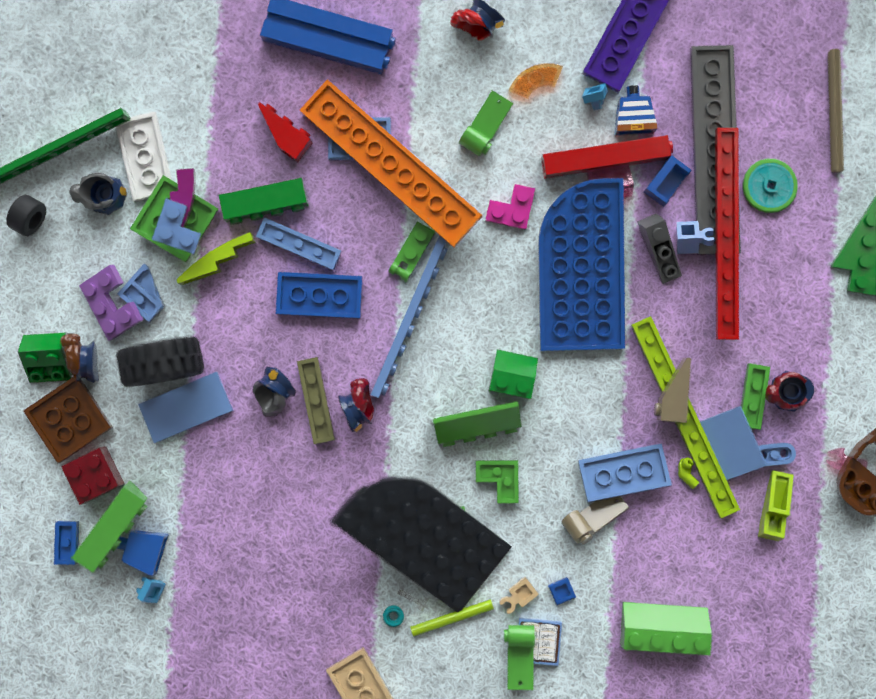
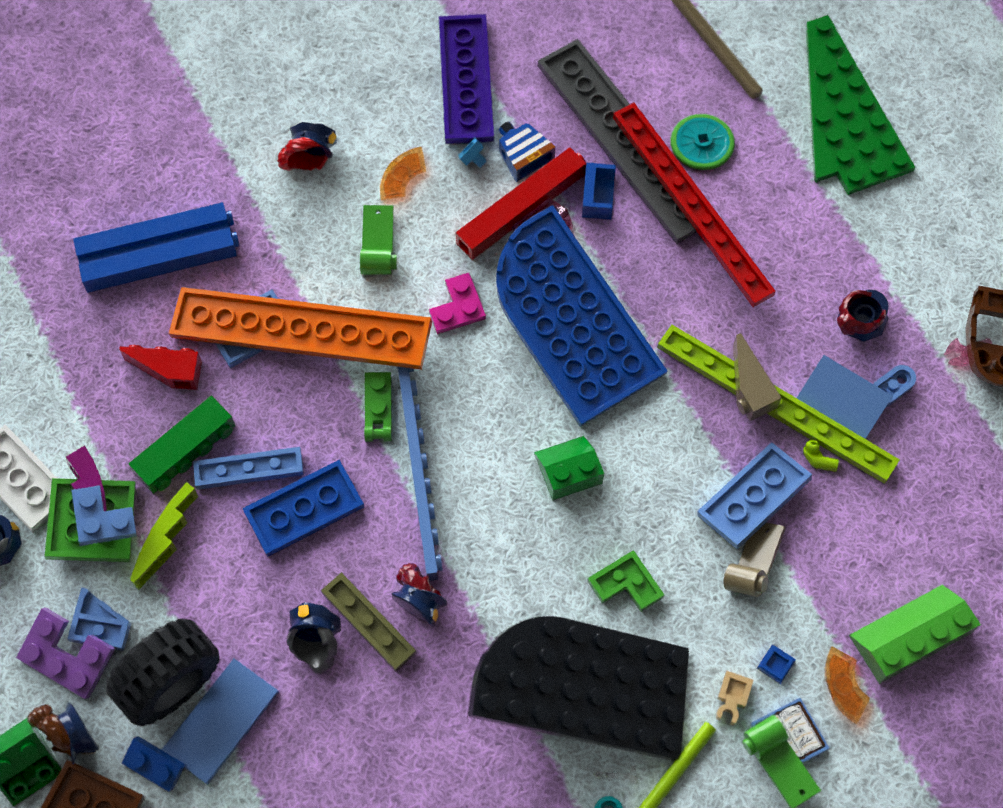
camera: 35 degrees left, 20 degrees down
(128, 410) = (153, 763): none -> blue plate
(476, 423) = (562, 534): bright green slope -> none
(595, 630) = (843, 685): none -> clear orange tile
(660, 247) = (633, 254): dark grey slope -> none
(689, 237) = (657, 226): medium blue brick -> none
(754, 394) = (829, 337): bright green plate -> none
(776, 506) = (934, 436): lime slope -> none

